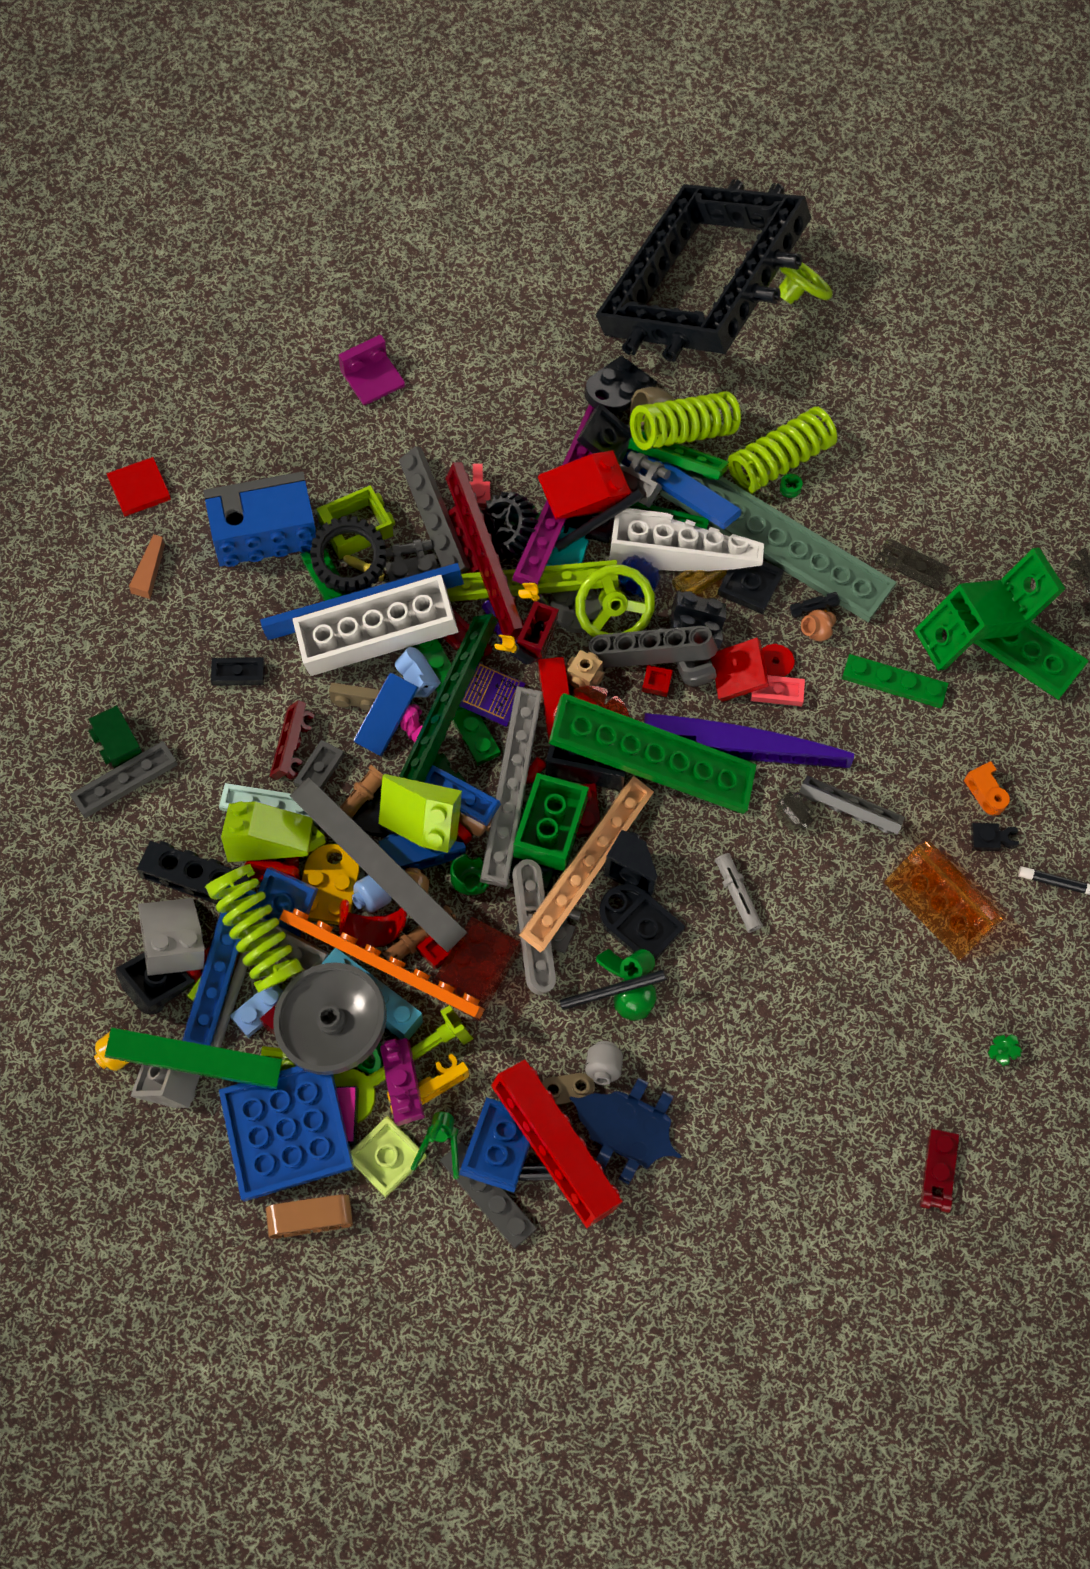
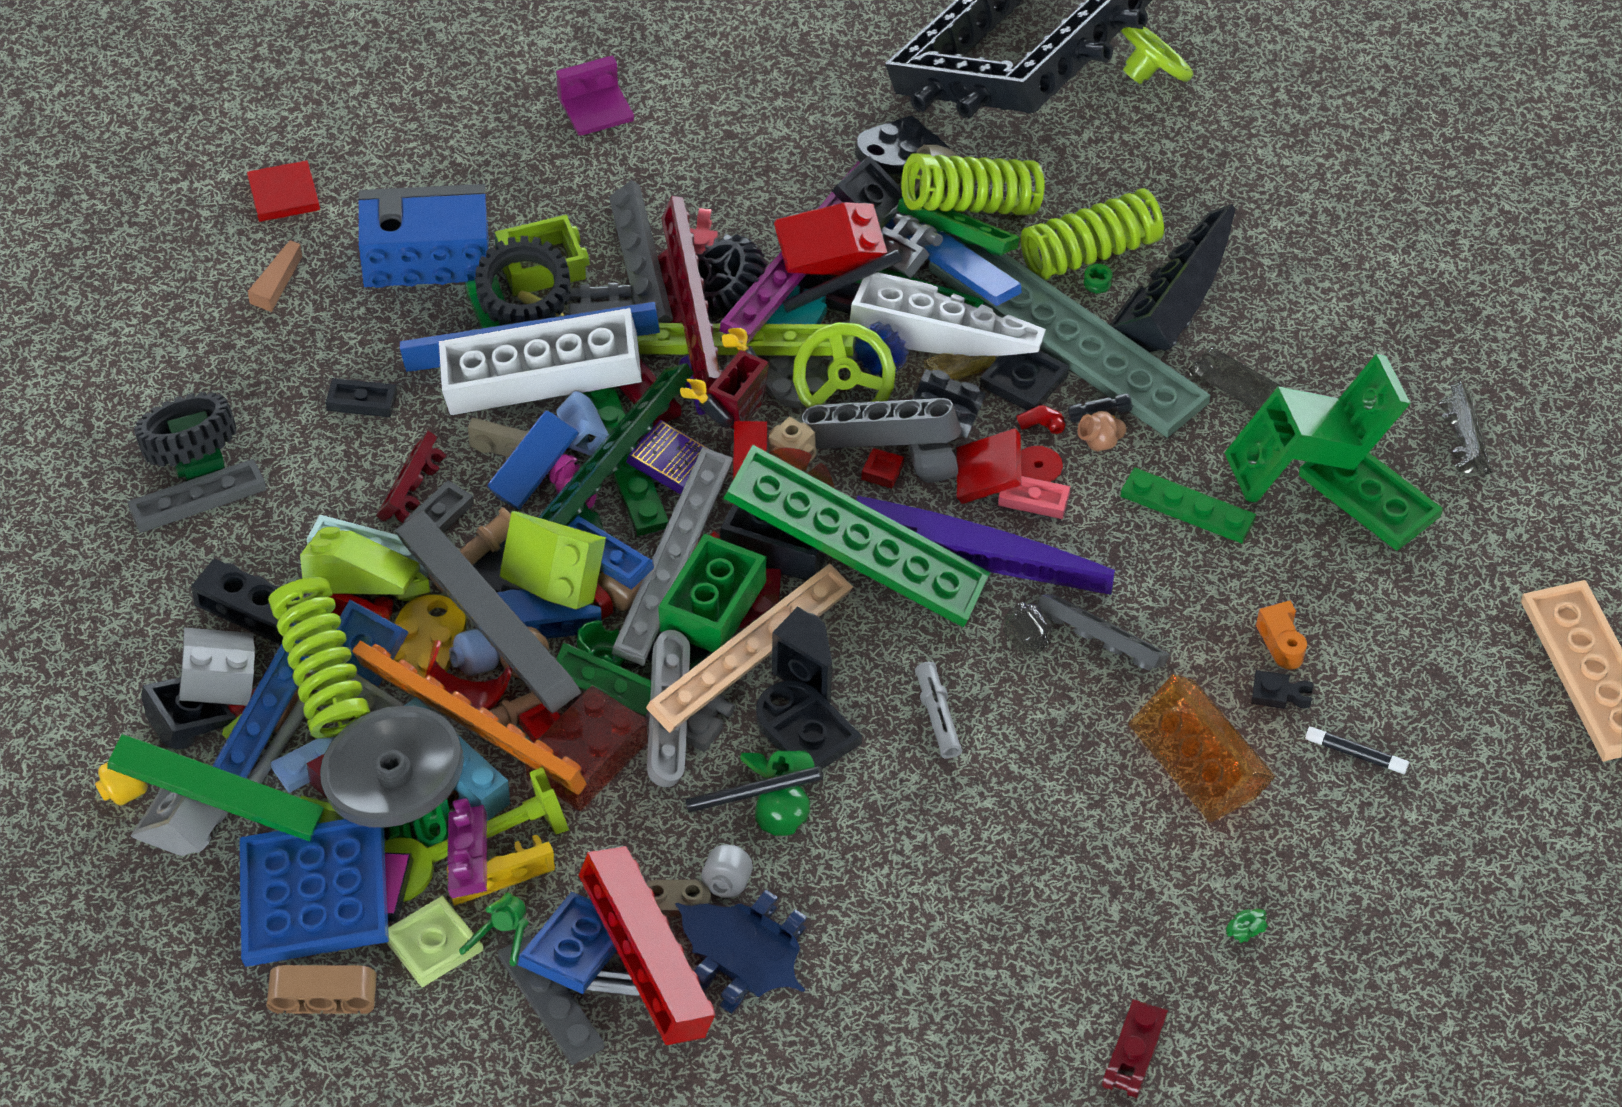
camera: 10 degrees right, 15 degrees down
(111, 741) = (165, 448): none -> black tyre
(478, 905) = (611, 679): none -> green plate
(771, 616) = (1044, 416): none -> red arm
(848, 501) = (1165, 307): none -> black wedge

